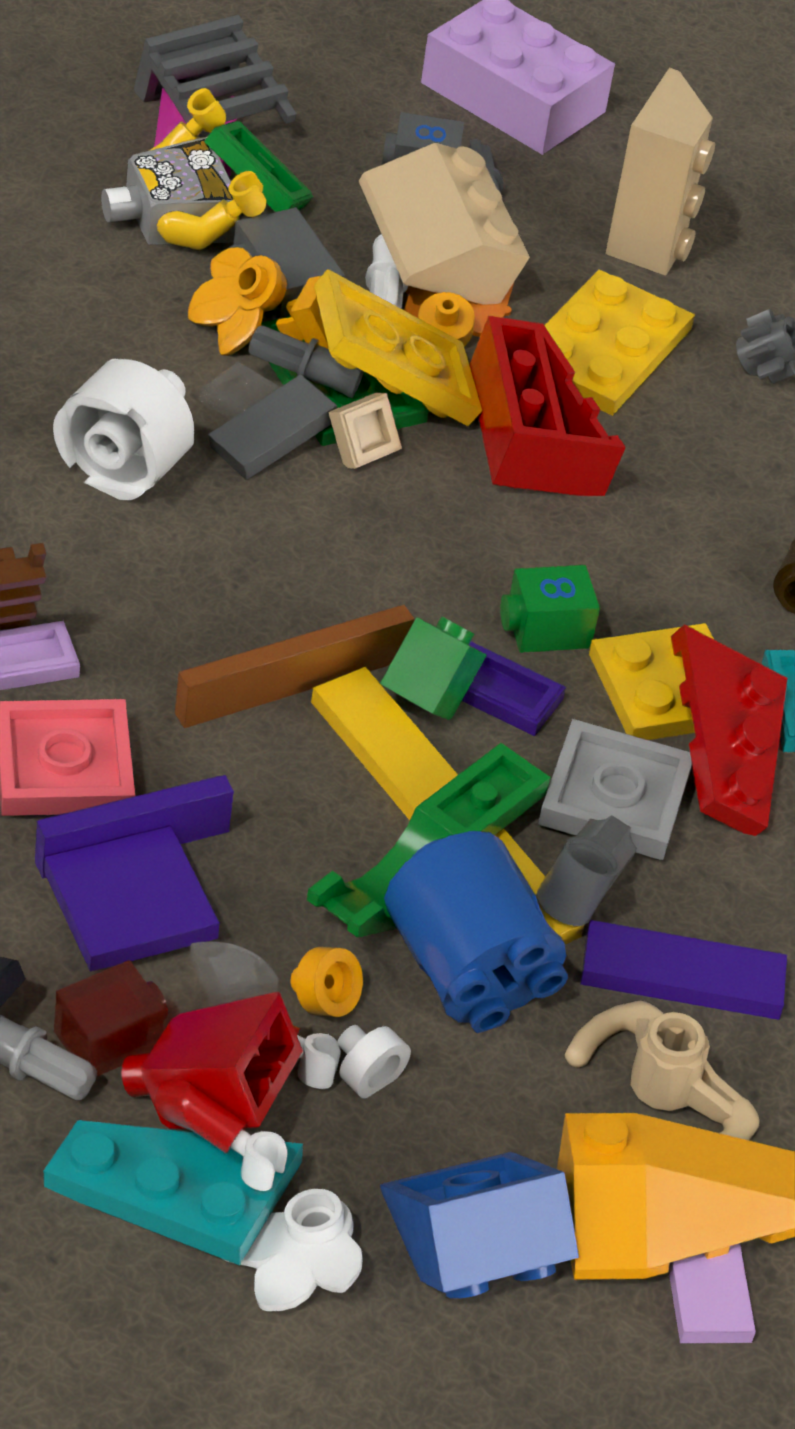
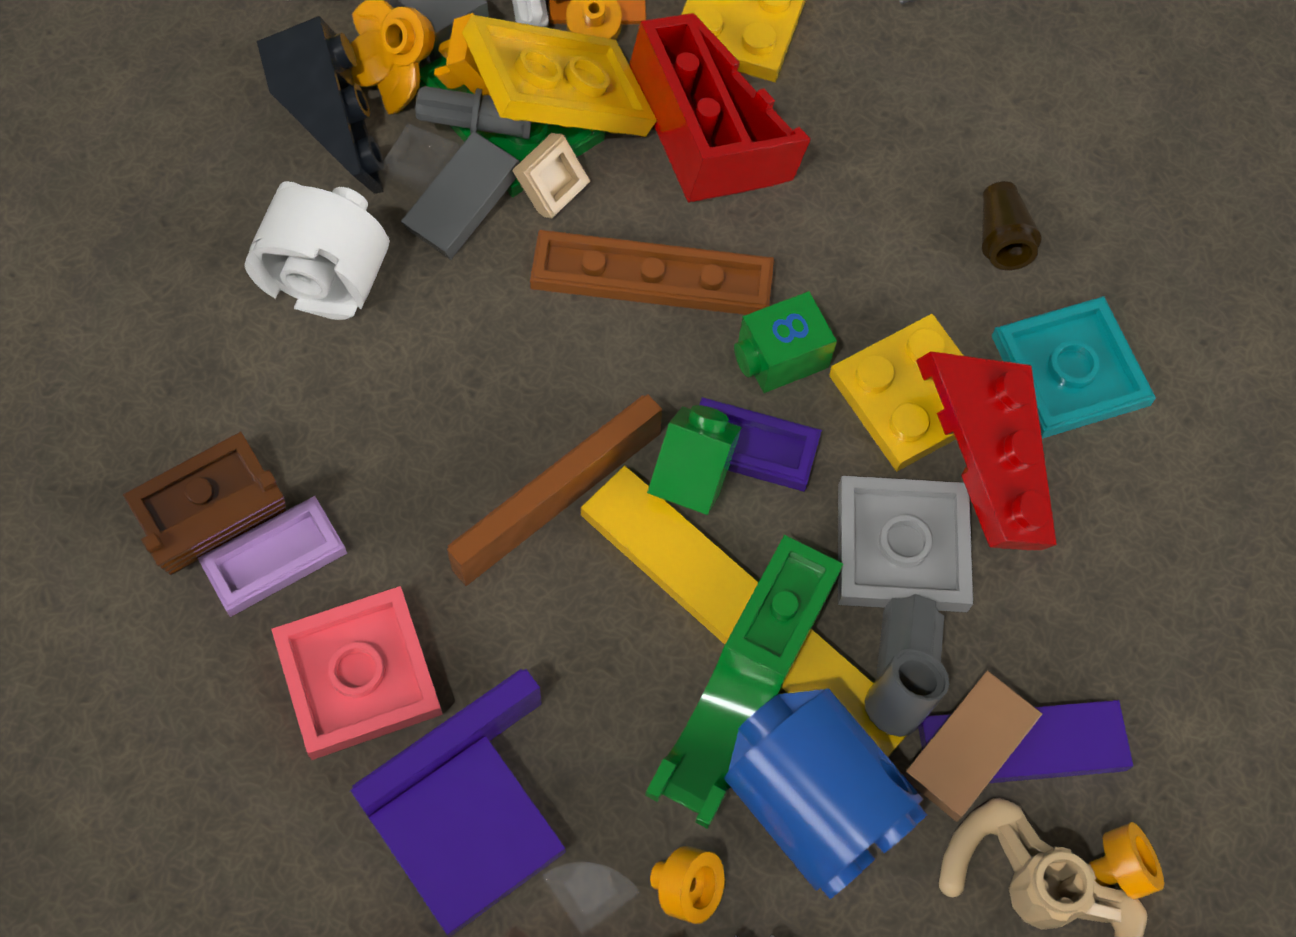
camera: 10 degrees left, 20 degrees up
(158, 305) = (314, 82): none -> black slope
(433, 529) = (651, 273): none -> dark orange tile
(630, 944) = (972, 746): none -> medium nougat tile
(754, 1070) = (1129, 862): none -> light orange tile

